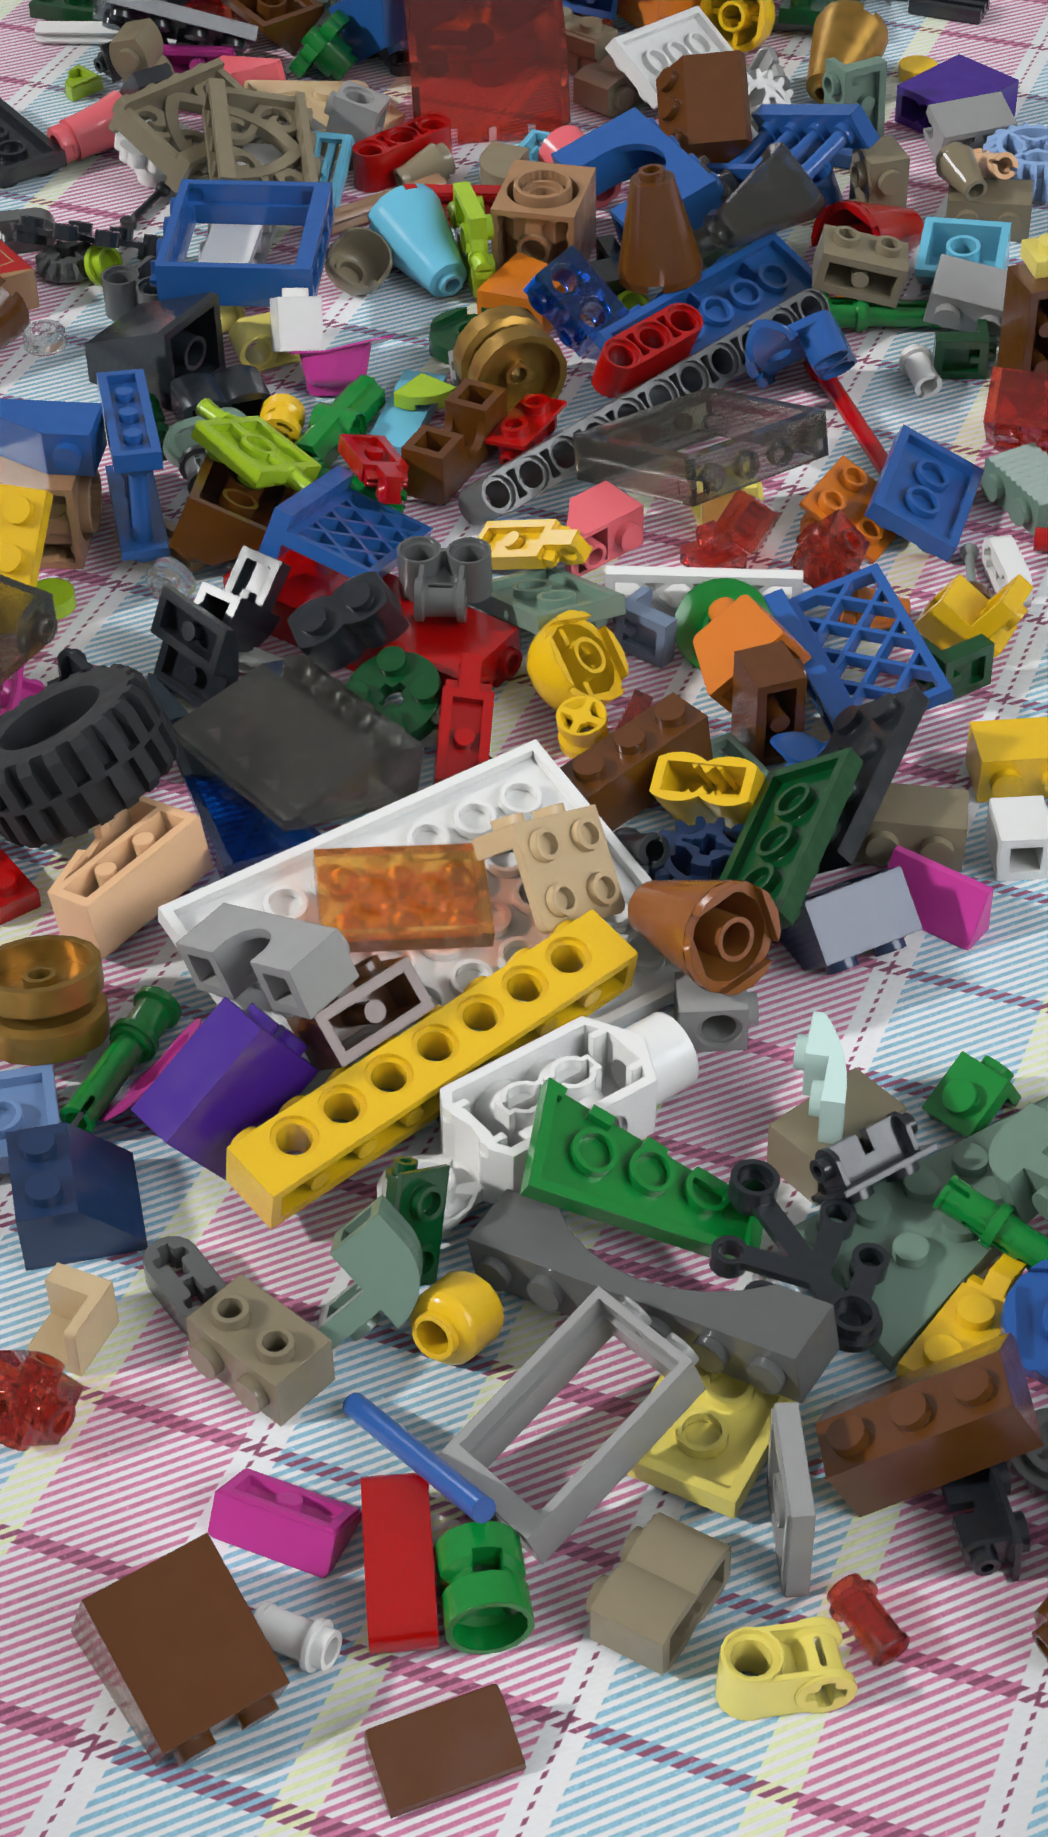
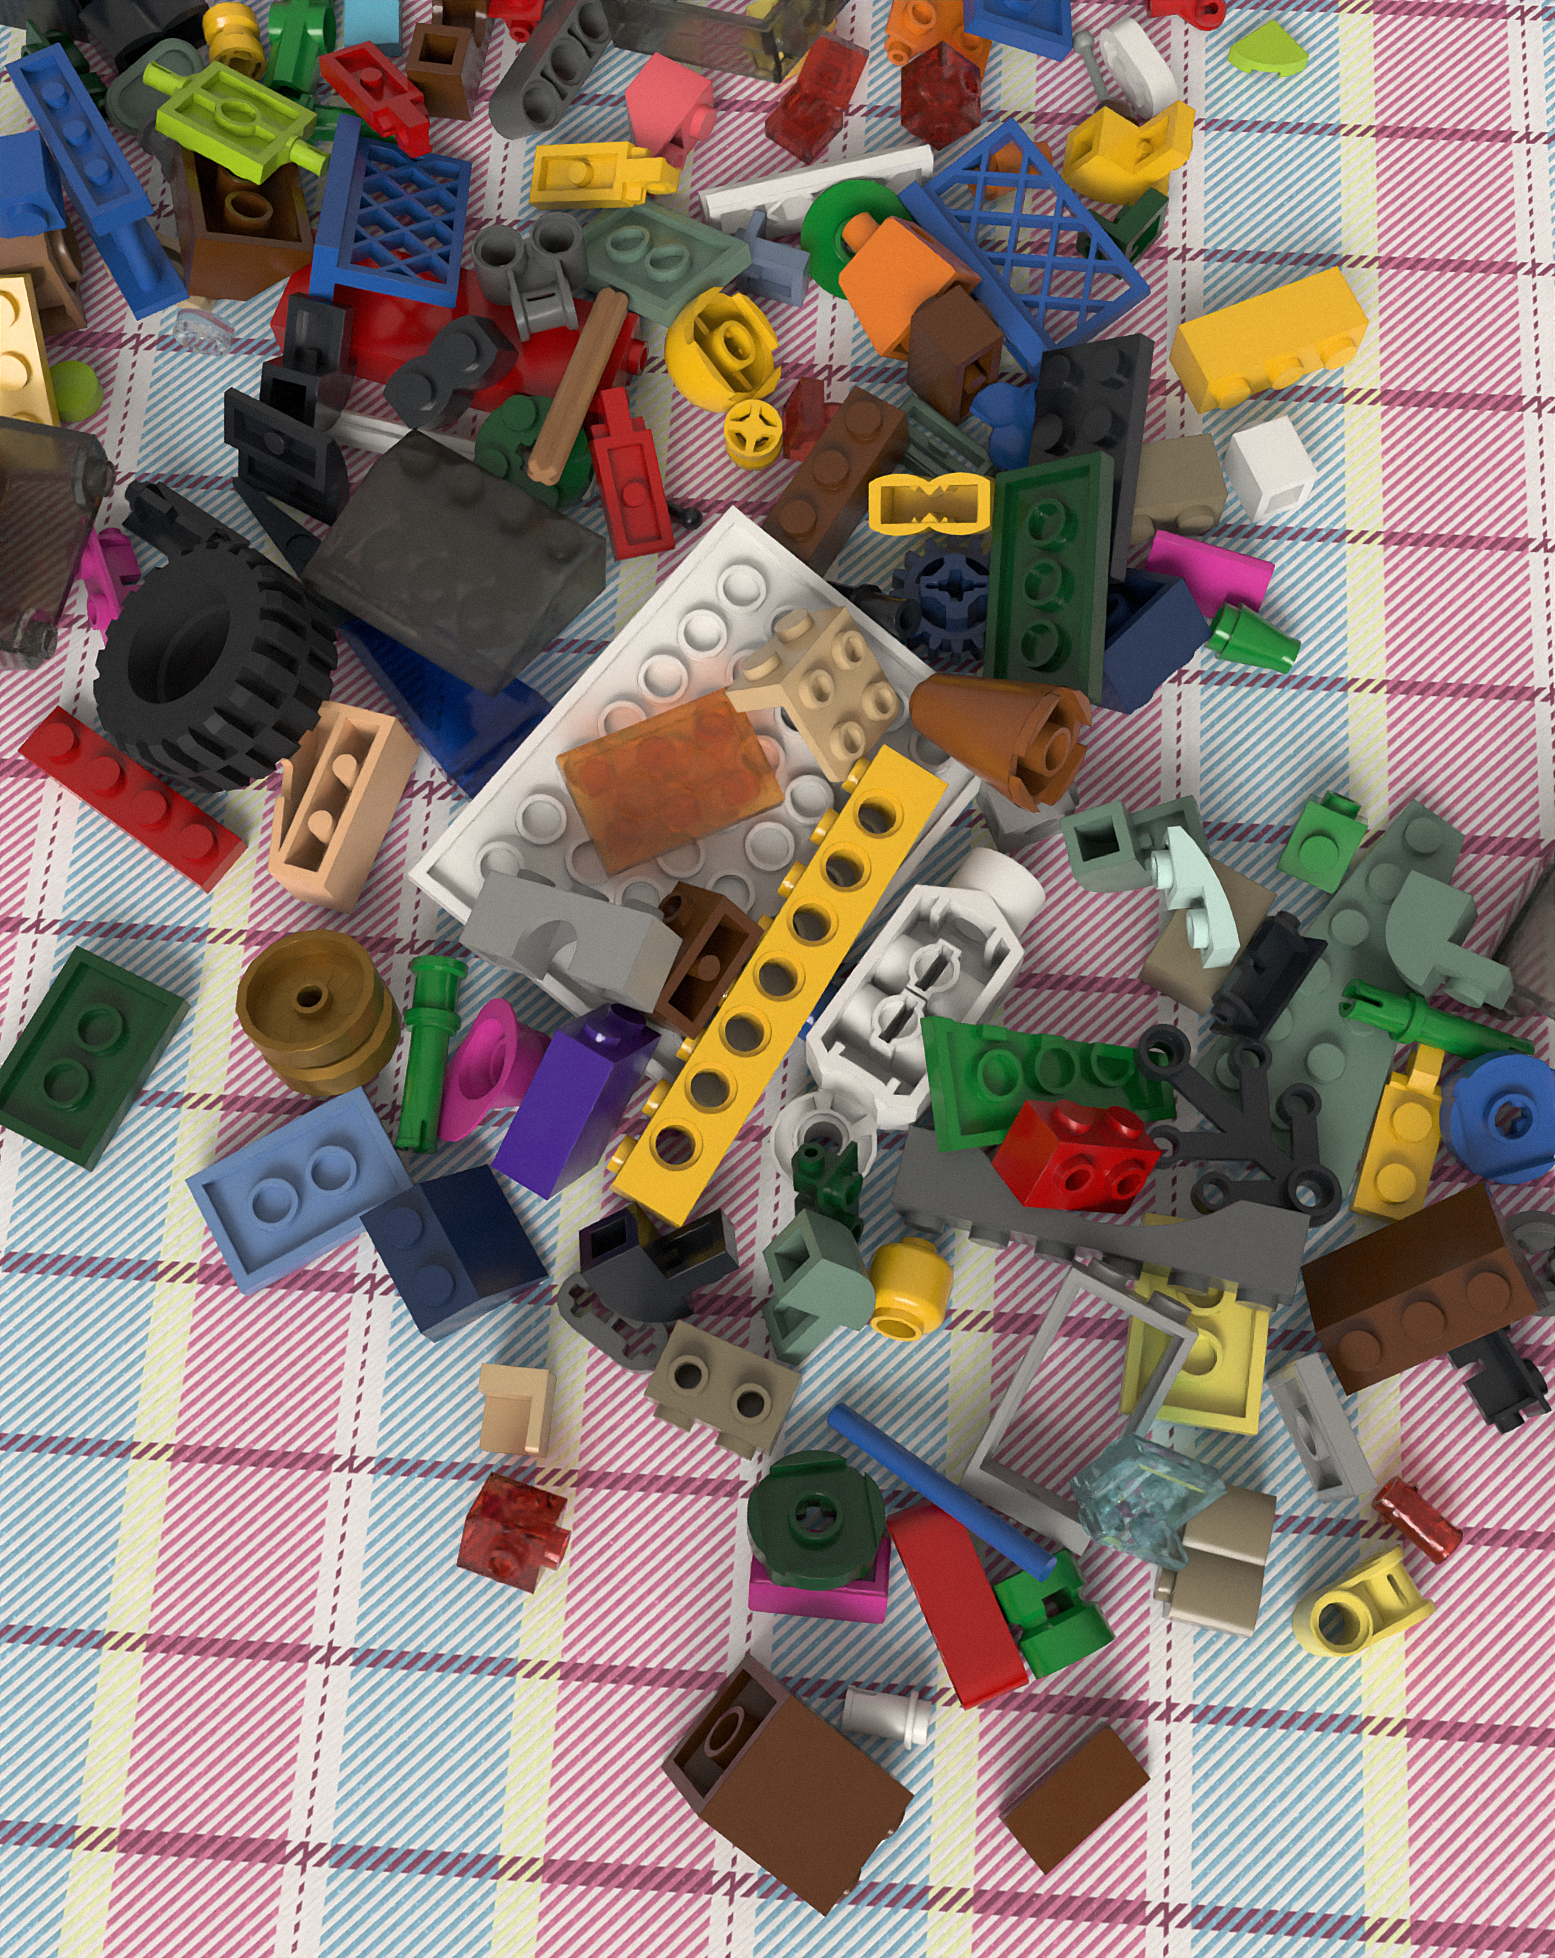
camera: 15 degrees left, 30 degrees up
(224, 1235) = (651, 1273): none -> black brick
(295, 1461) = (808, 1558): none -> dark green plate
(444, 649) = (577, 387): none -> medium nougat axle
(598, 1481) = (1141, 1496): none -> clear light blue bracket
(641, 1229) = (1076, 1157): none -> red brick
(763, 1044) = (1114, 847): none -> sand green brick
(958, 946) = (1250, 639): none -> green cone

